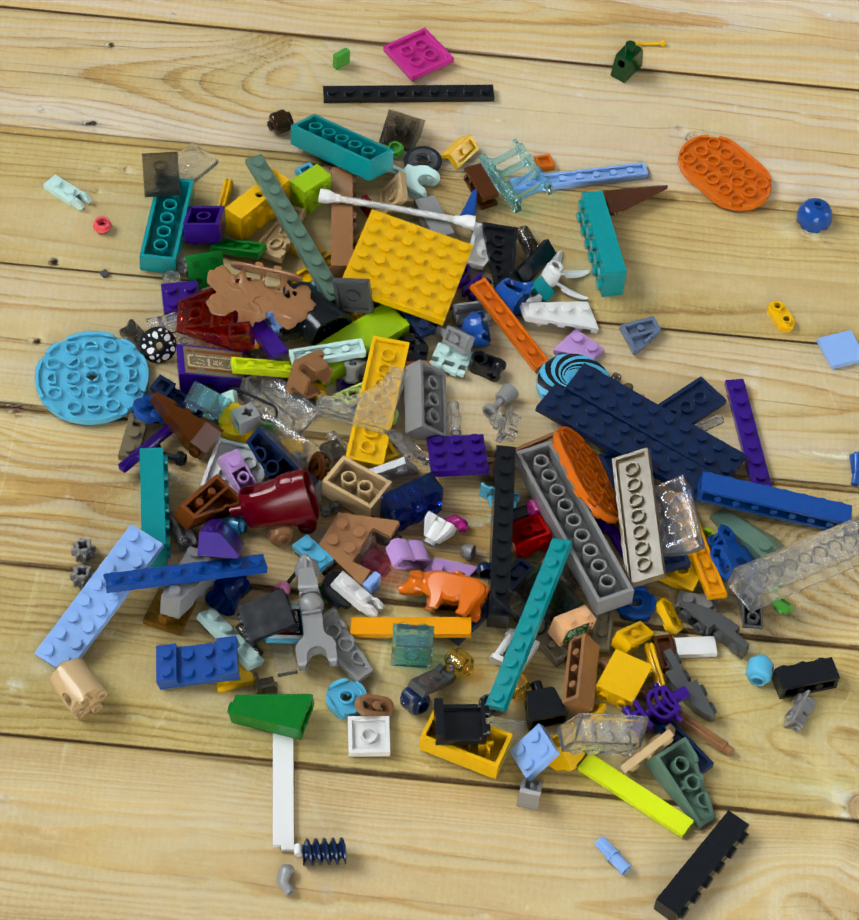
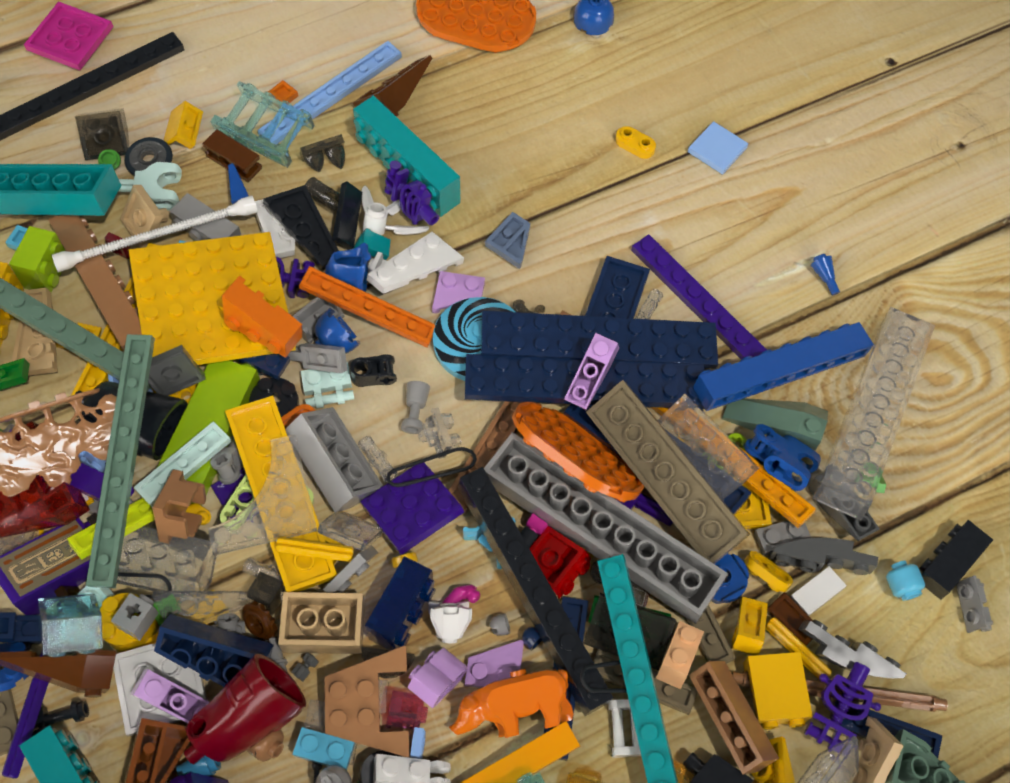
camera: 30 degrees left, 10 degrees up
(291, 326) = (120, 462): none -> sand green plate
(377, 441) = (314, 549): none -> yellow axle
(428, 290) = (259, 320): none -> orange wedge
(485, 433) = (433, 476): none -> black piece
(553, 213) = (332, 147): none -> clear smoke tile
(586, 268) = (413, 196): none -> dark purple torso
(633, 433) = (592, 371): none -> lavender slope

